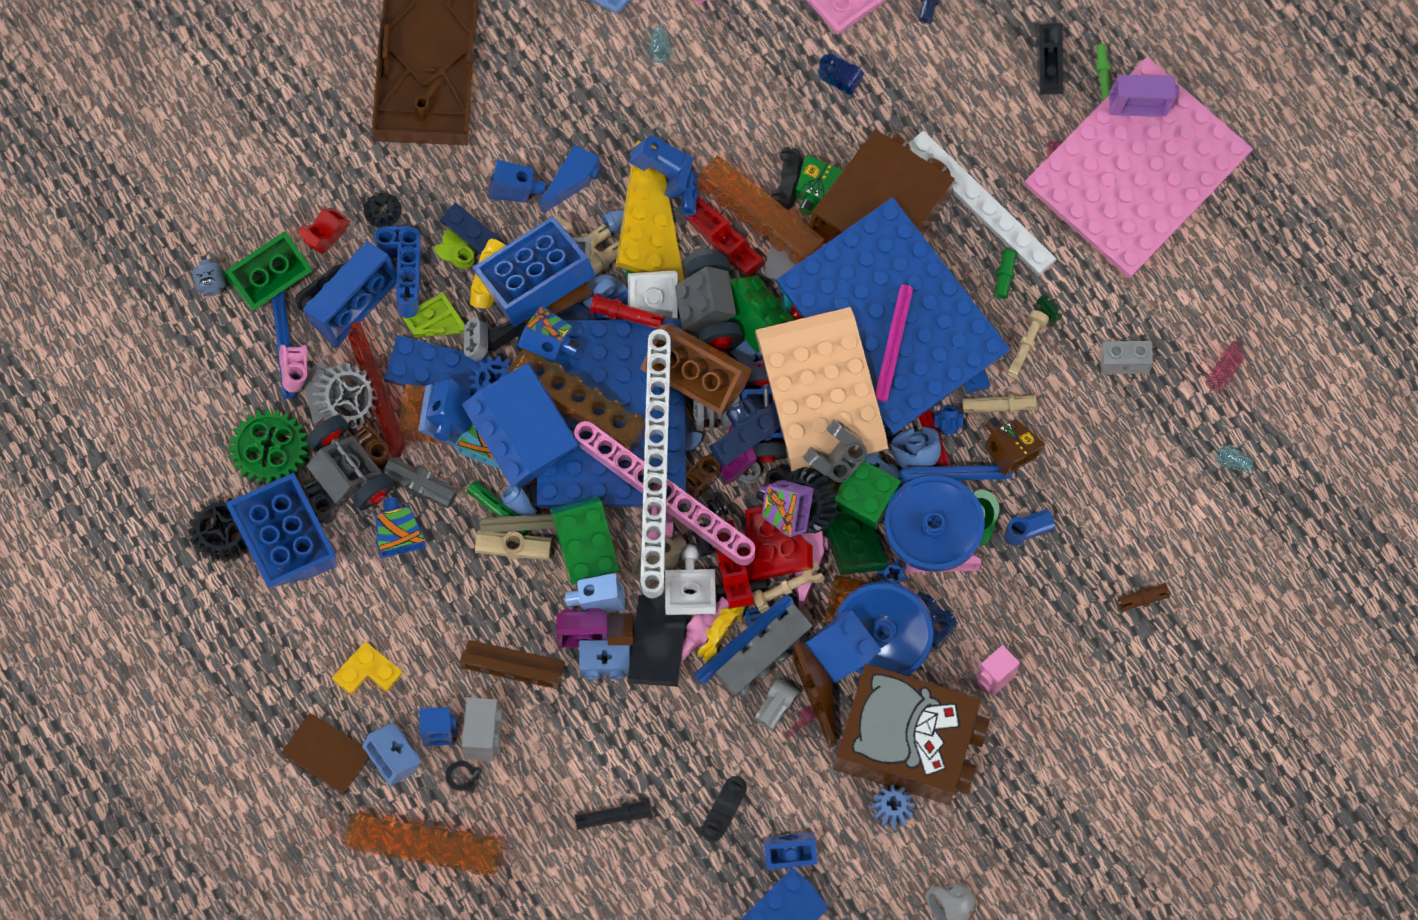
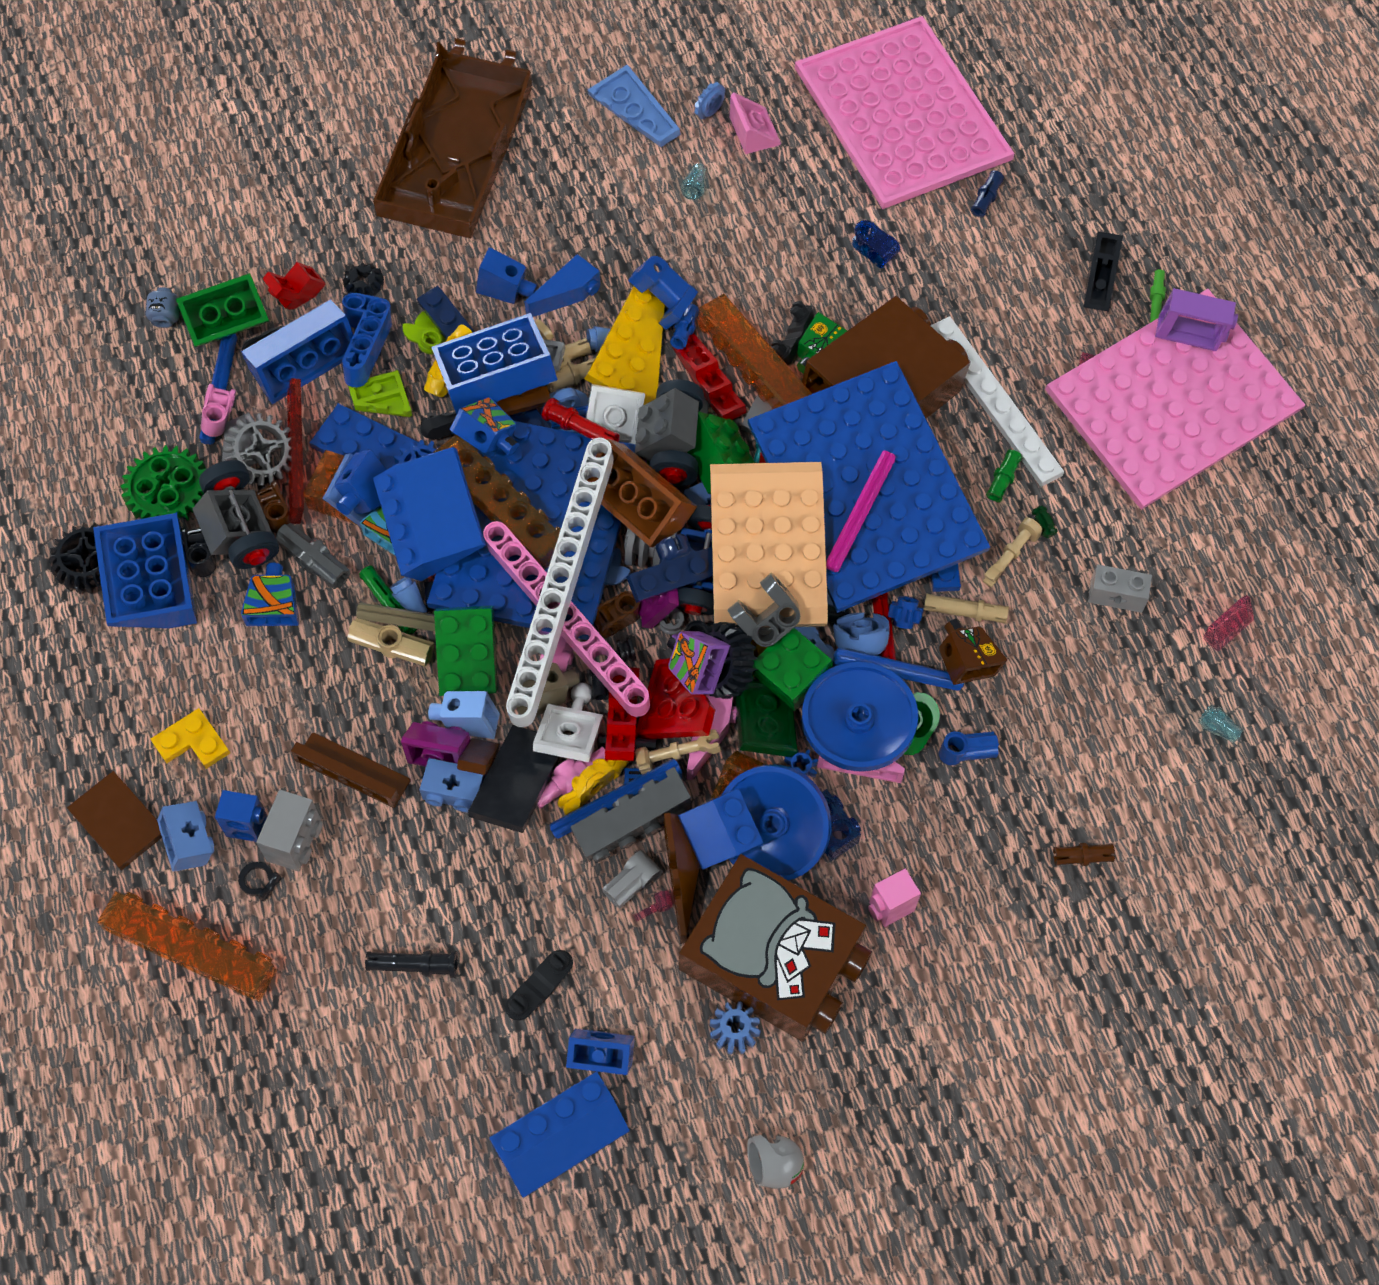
camera: 15 degrees right, 5 degrees down
(475, 339) = (415, 421): light grey beam -> none

